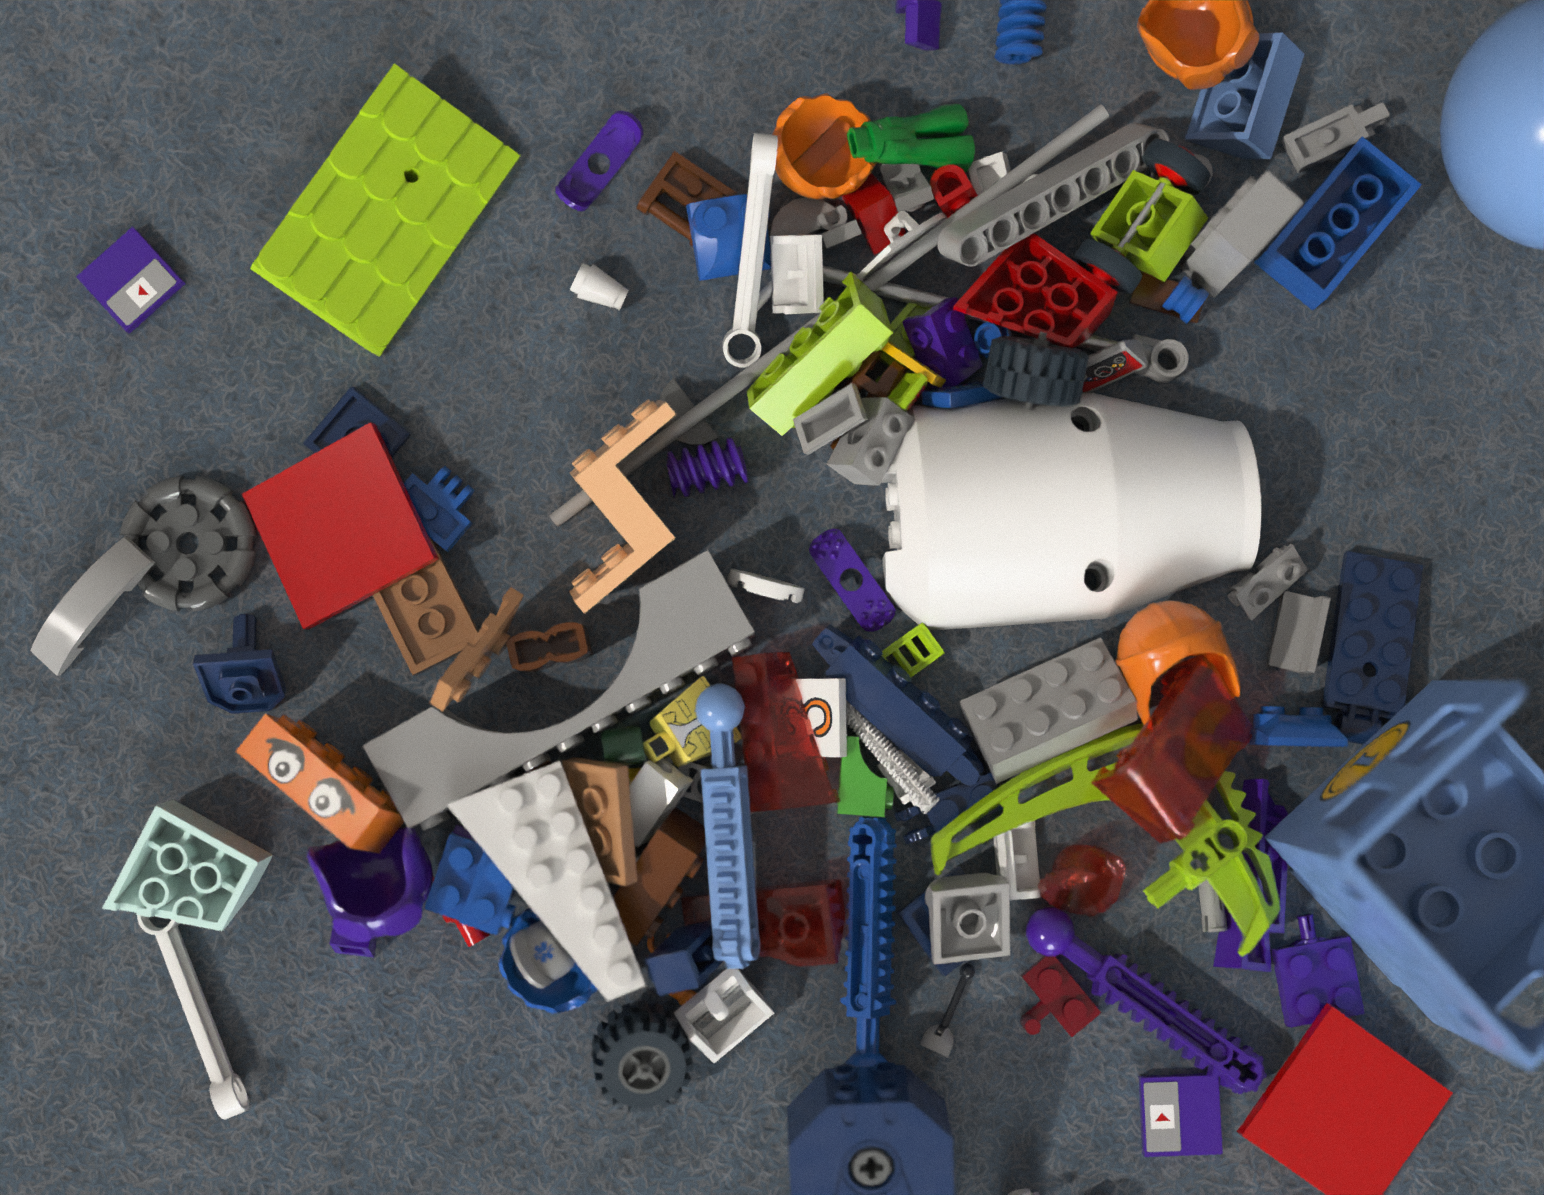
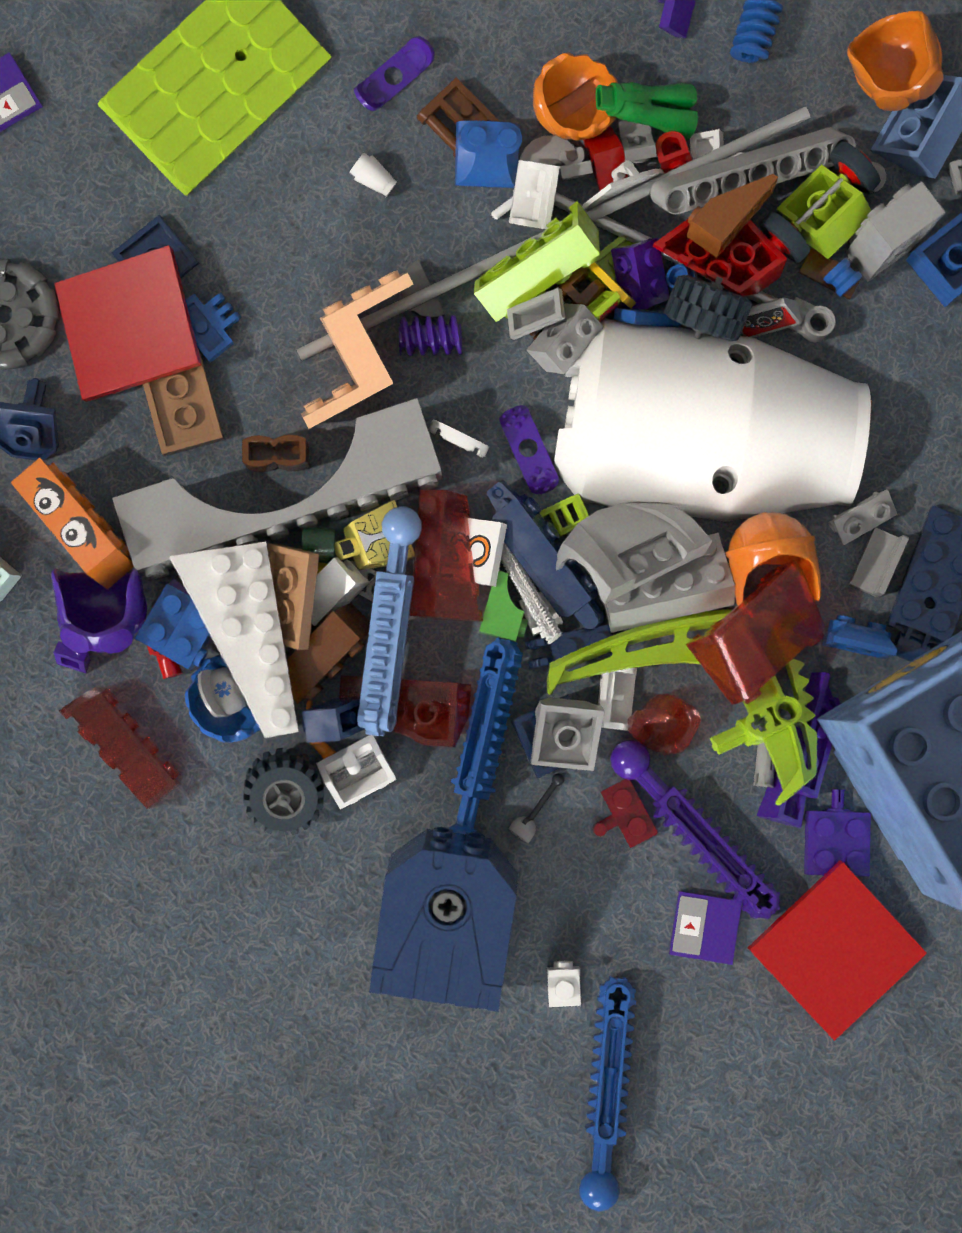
camera: 10 degrees right, 0 degrees up
(435, 1039) = (122, 745): none -> clear red wedge
(475, 657) = (216, 447): medium nougat wing -> none
(753, 244) = (503, 164): white piece -> none
(1003, 676) = (633, 545): none -> light grey piece
(1035, 254) = (727, 214): none -> dark orange slope

